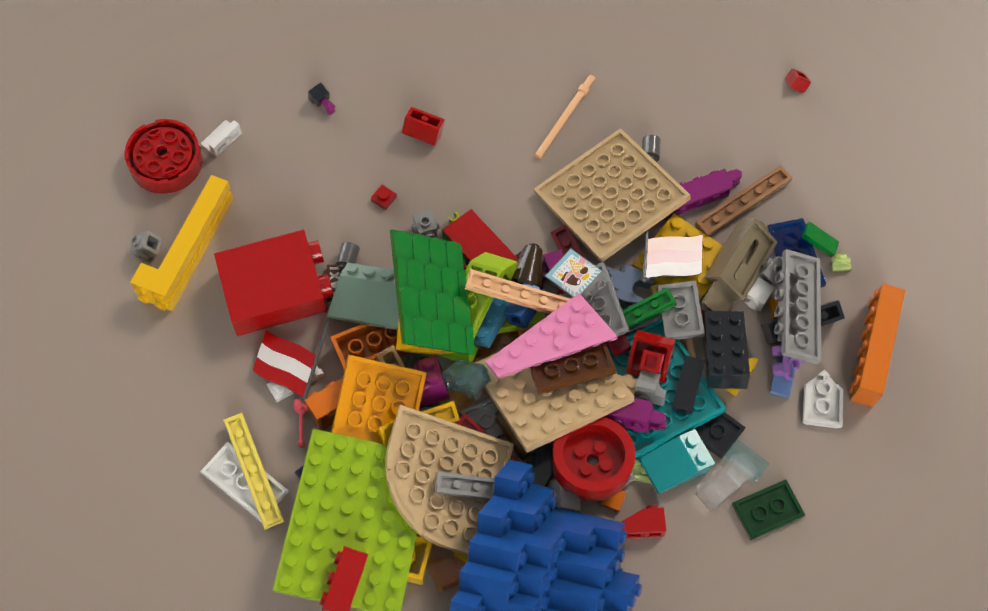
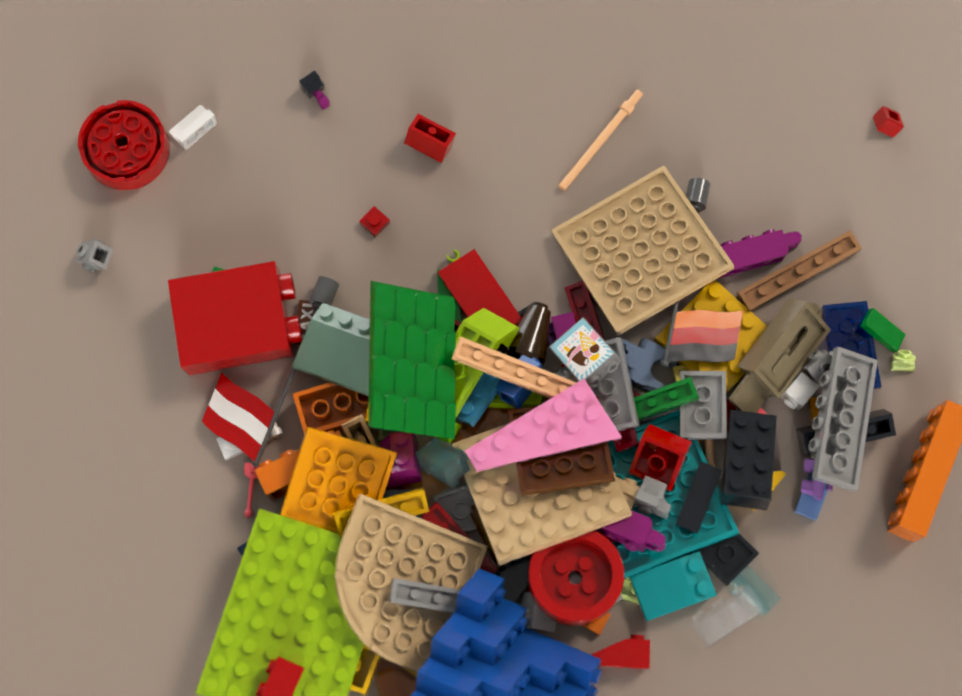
camera: 10 degrees right, 10 degrees up
(168, 282) = (123, 294): yellow brick -> none
(227, 475) = (180, 551): white tile -> none
(253, 471) = (191, 541): light yellow tile -> none
(425, 224) = (418, 264): light grey brick -> none
(651, 361) = (658, 468): red plate -> none
(768, 509) = (771, 652): dark green tile -> none
(823, 402) = (855, 530): white tile -> none

